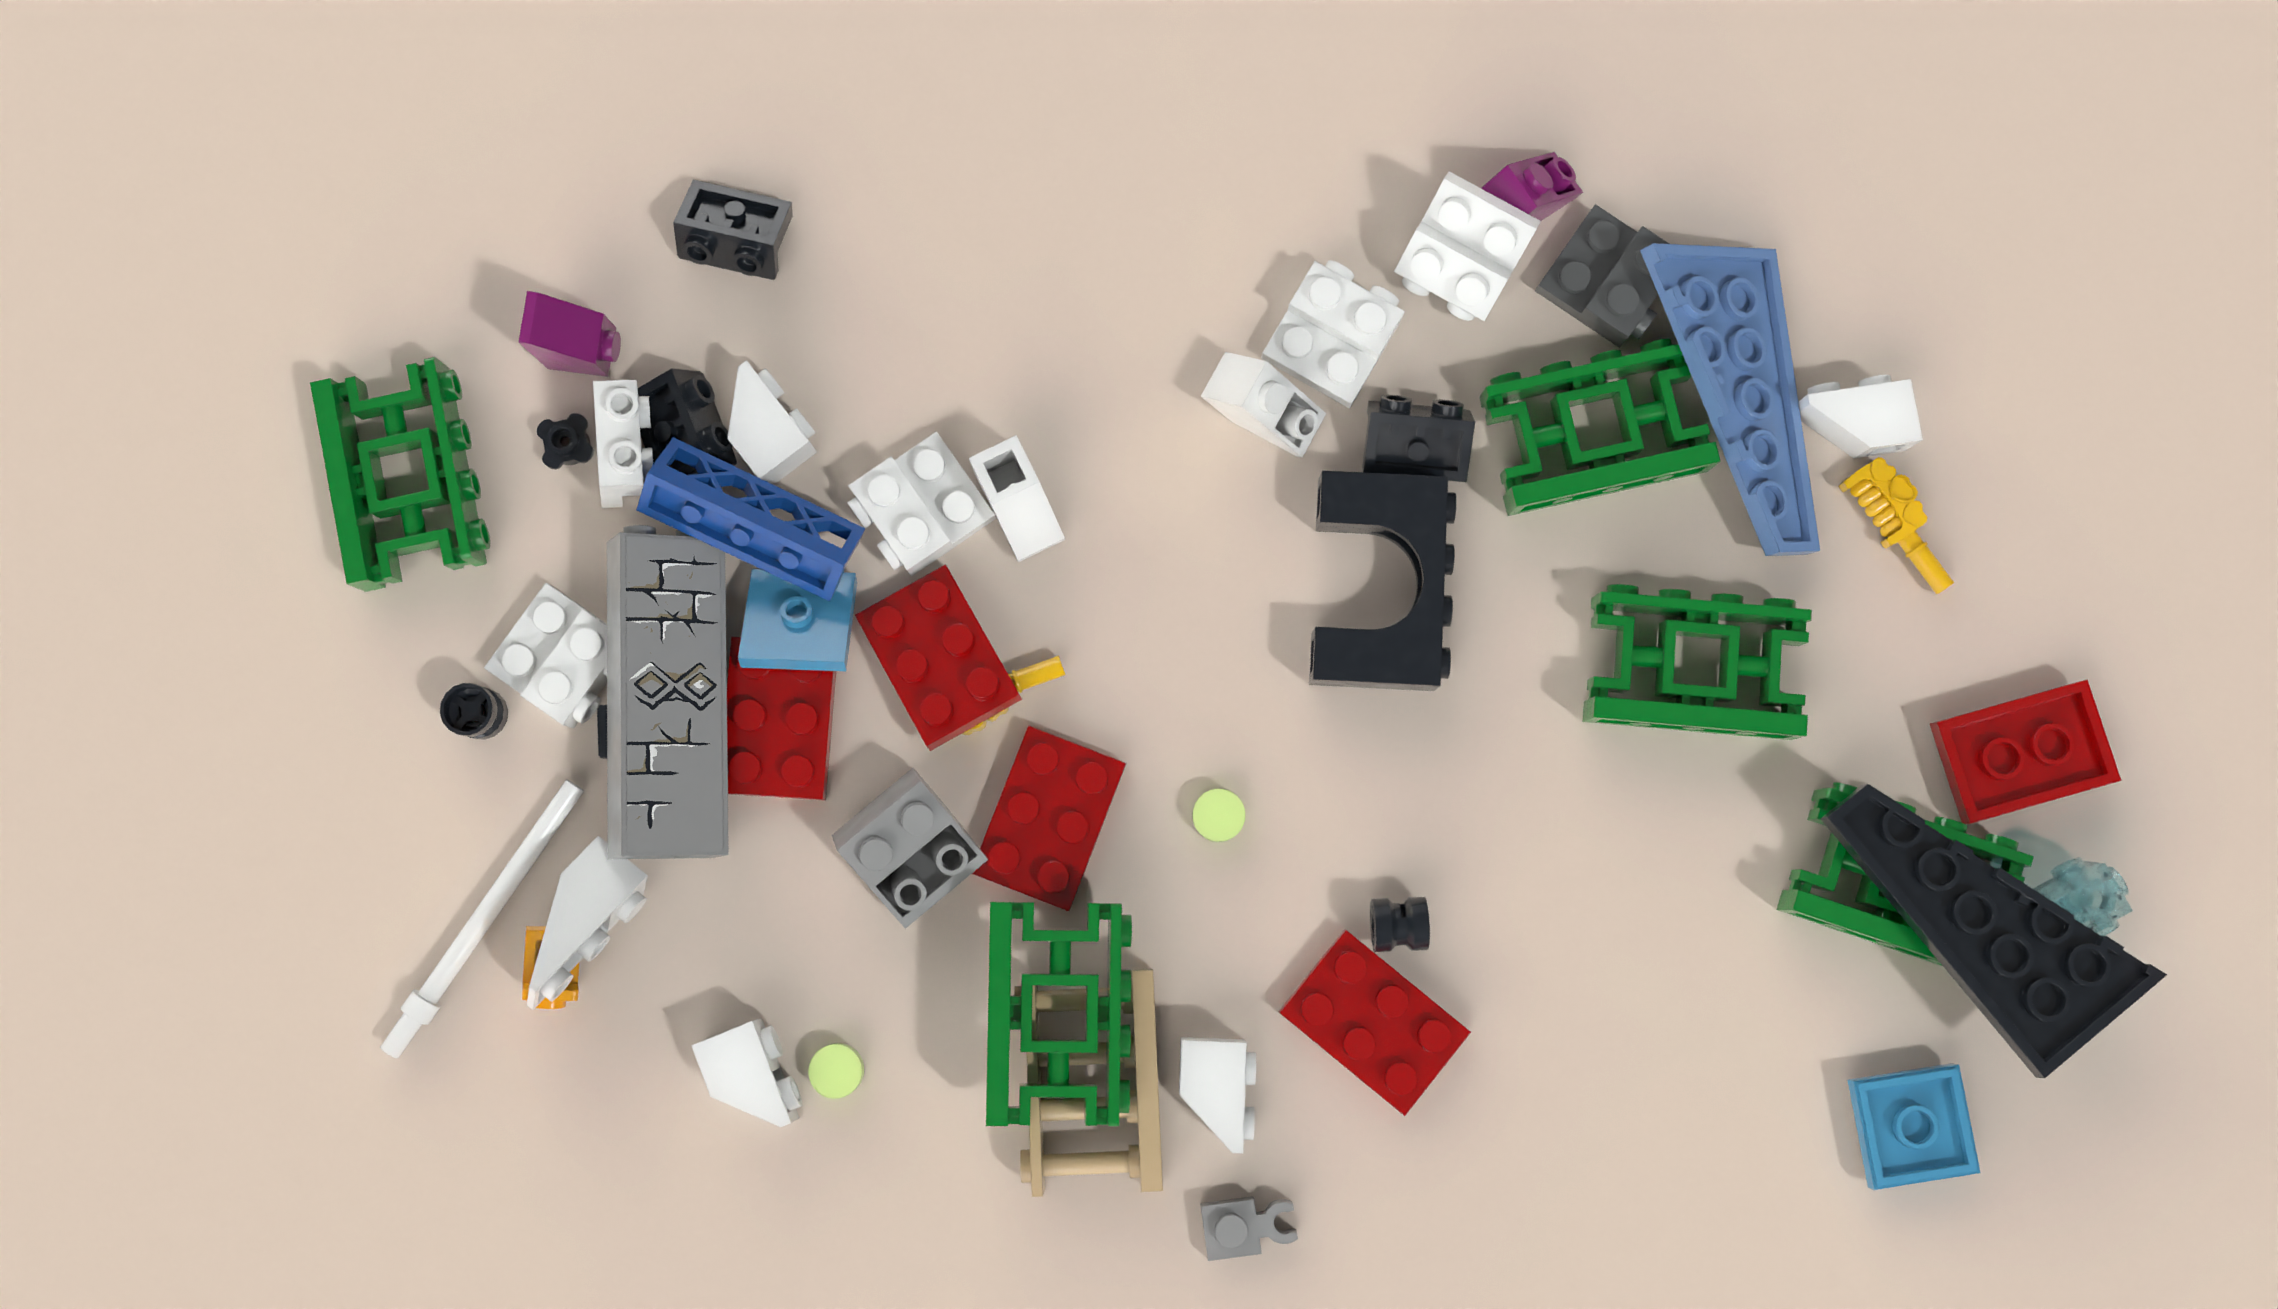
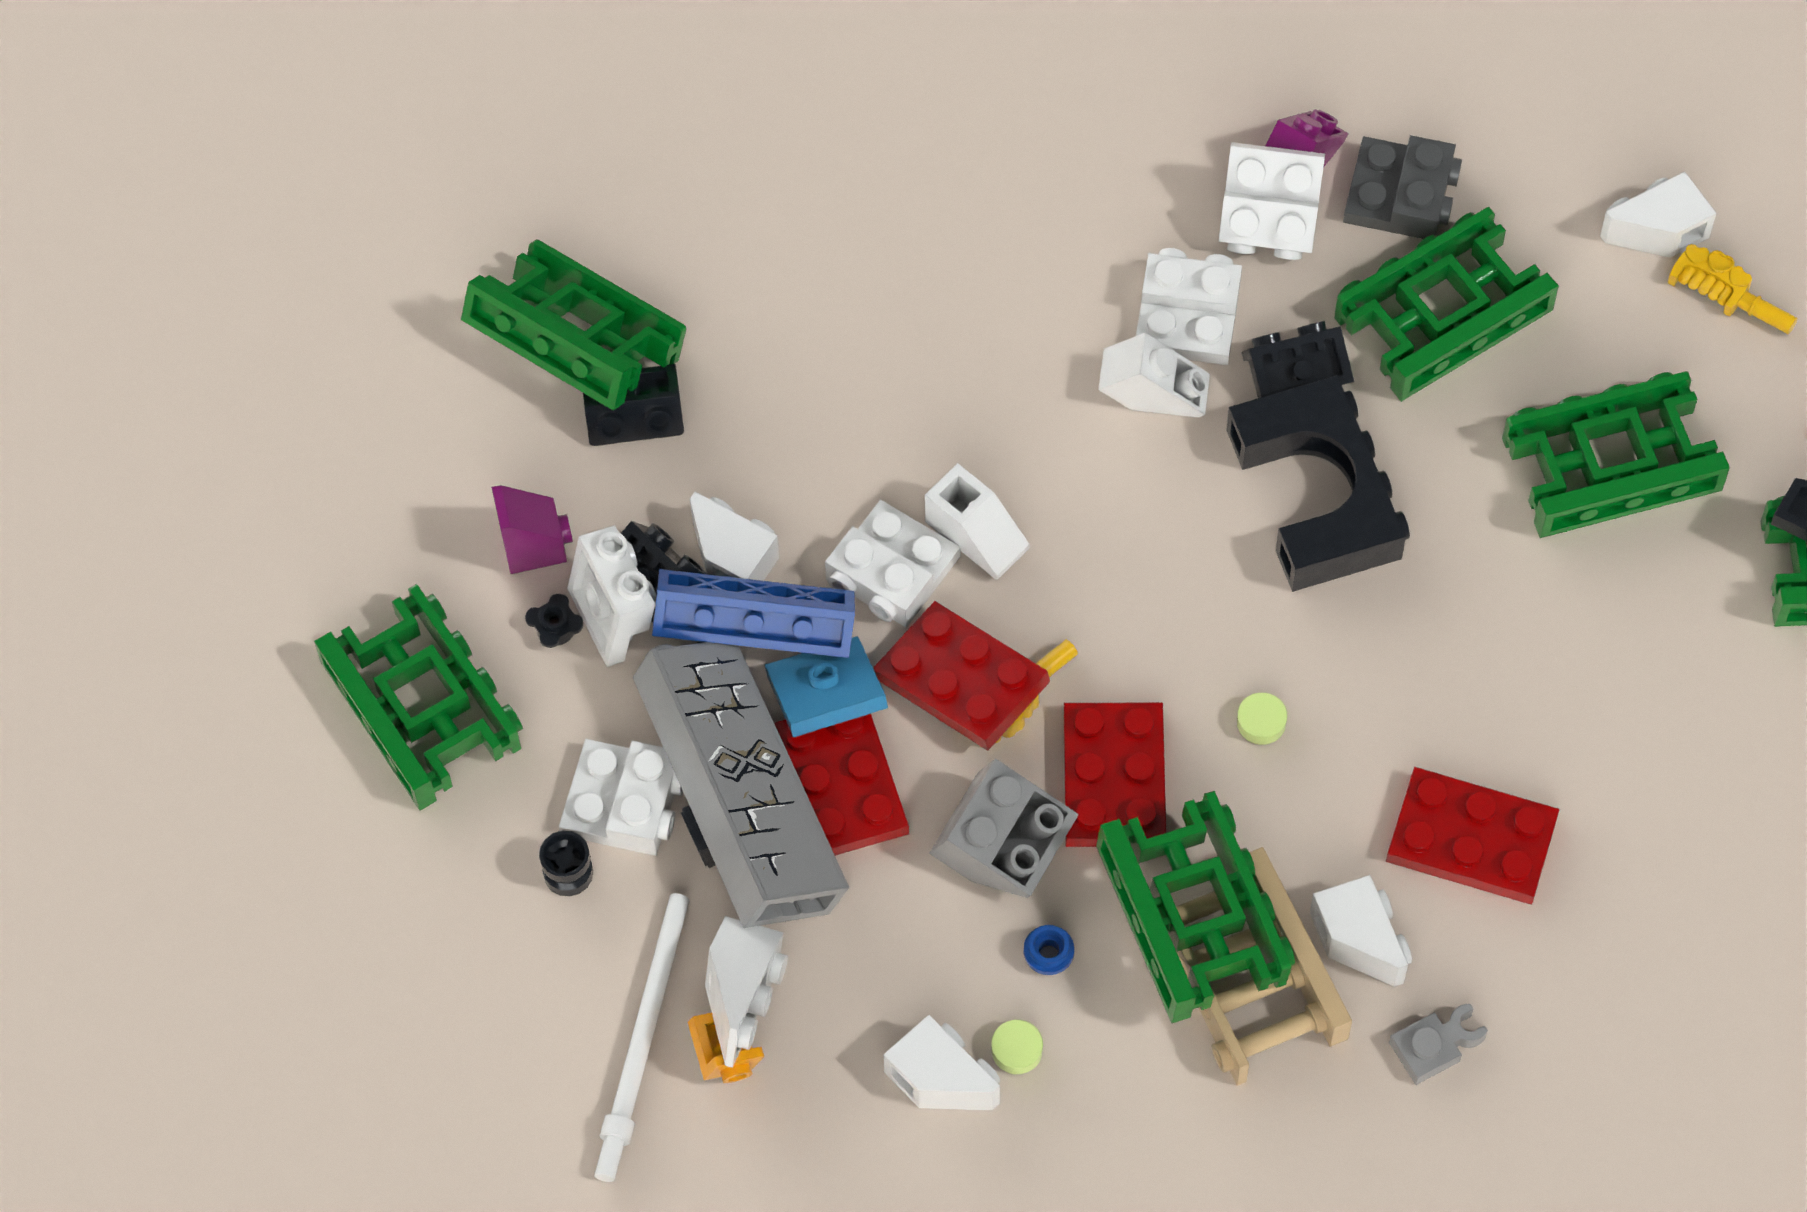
camera: 20 degrees left, 20 degrees down
(668, 143) = (531, 323): none -> green fence
(890, 982) = (1048, 936): none -> blue plate
(1399, 924) = (1455, 745): black wheel -> none
(1738, 350) = (1534, 201): medium blue wing -> none

